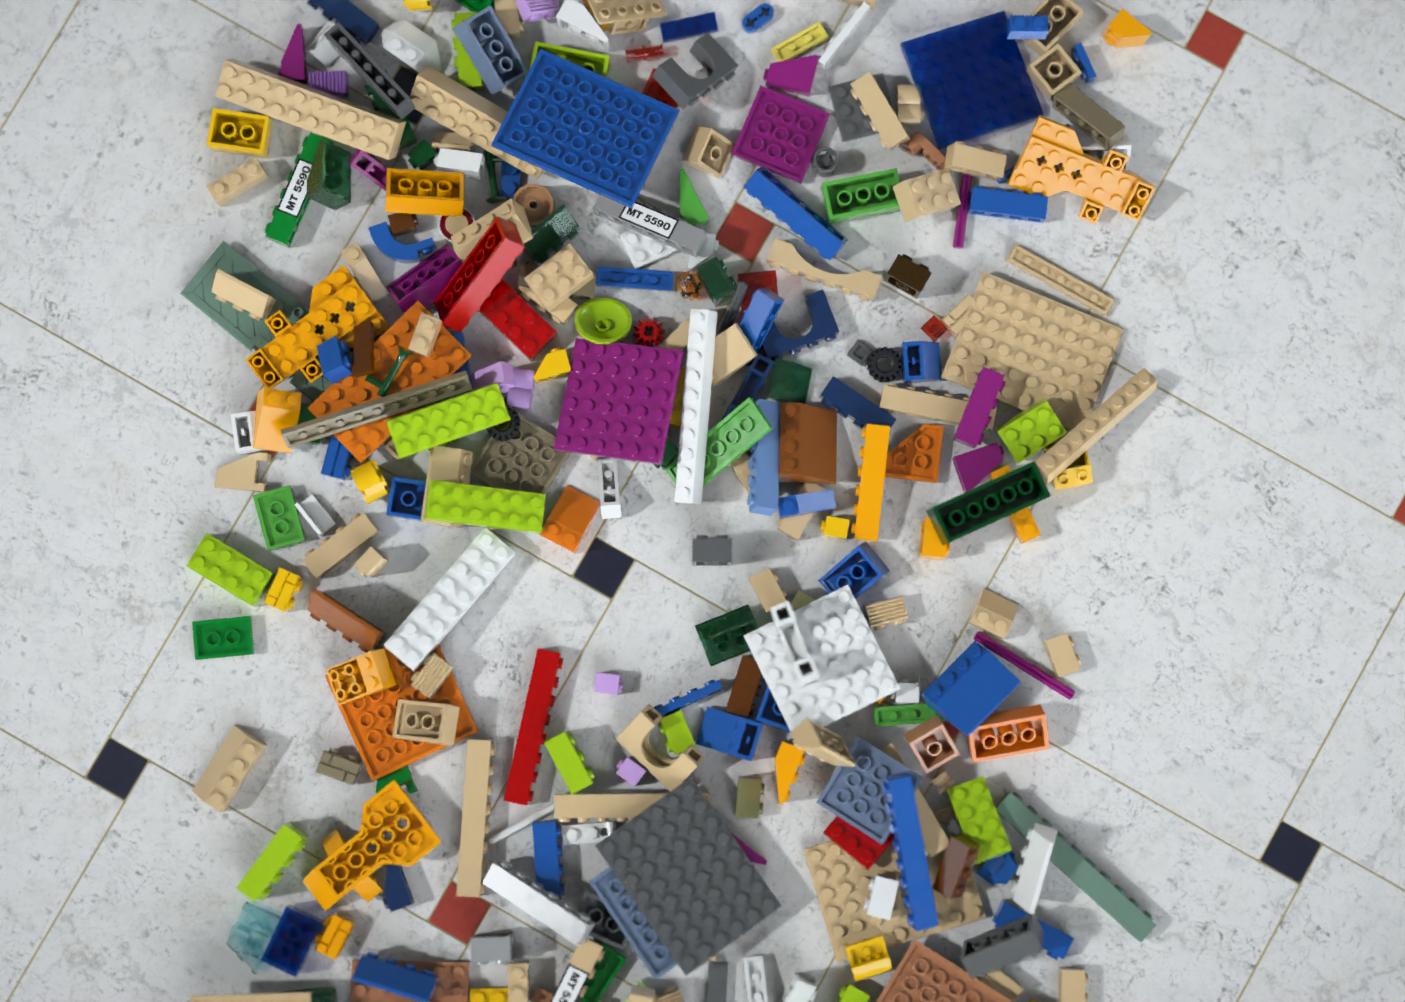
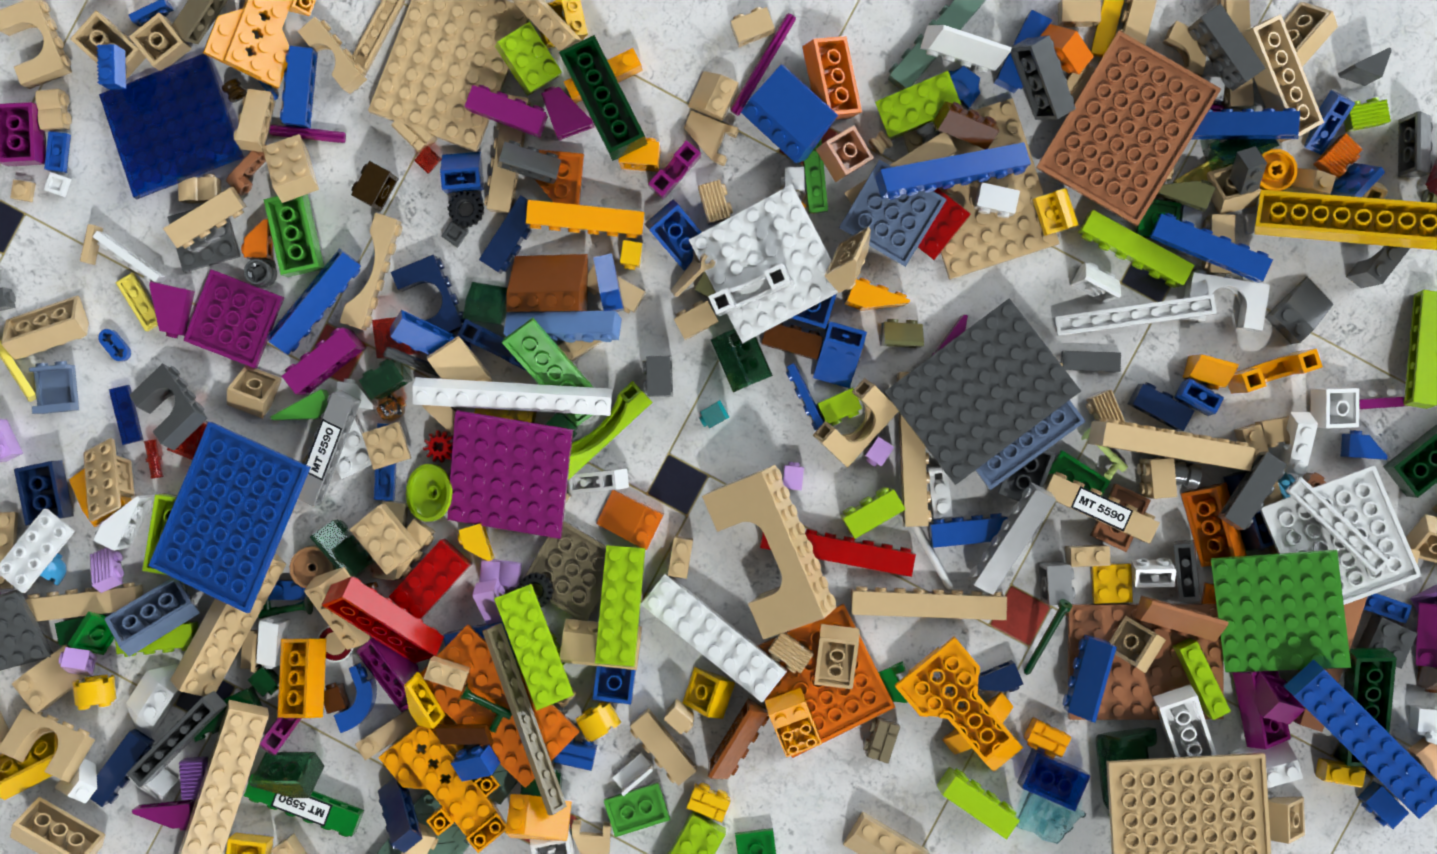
camera: 90 degrees left, 5 degrees up
(286, 284) = (399, 816): none -> dark blue brick
(393, 593) = (708, 693): none -> yellow slope
(396, 310) = (422, 702): none -> yellow slope
(469, 952) = (1064, 606): none -> dark green bar
(496, 689) = (803, 590): none -> tan arch
(530, 568) = (680, 557): none -> tan brick
(651, 280) = (386, 445): none -> tan plate
(672, 605) = (713, 415): none -> teal slope
(683, 520) = (628, 406): none -> lime arch
(735, 221) = (323, 361): none -> magenta brick
(816, 588) = (691, 273): none -> tan flag
(855, 161) = (259, 242): none -> orange slope
(915, 571) = (674, 172): none -> magenta arch
(928, 429) = (529, 162): none -> dark grey slope
(954, 608) = (709, 135): none -> tan flag
(1005, 141) = (234, 90): none -> dark brown wheel
(1020, 252) = (346, 72): none -> tan arch
(1032, 972) = (1069, 48): none -> orange brick

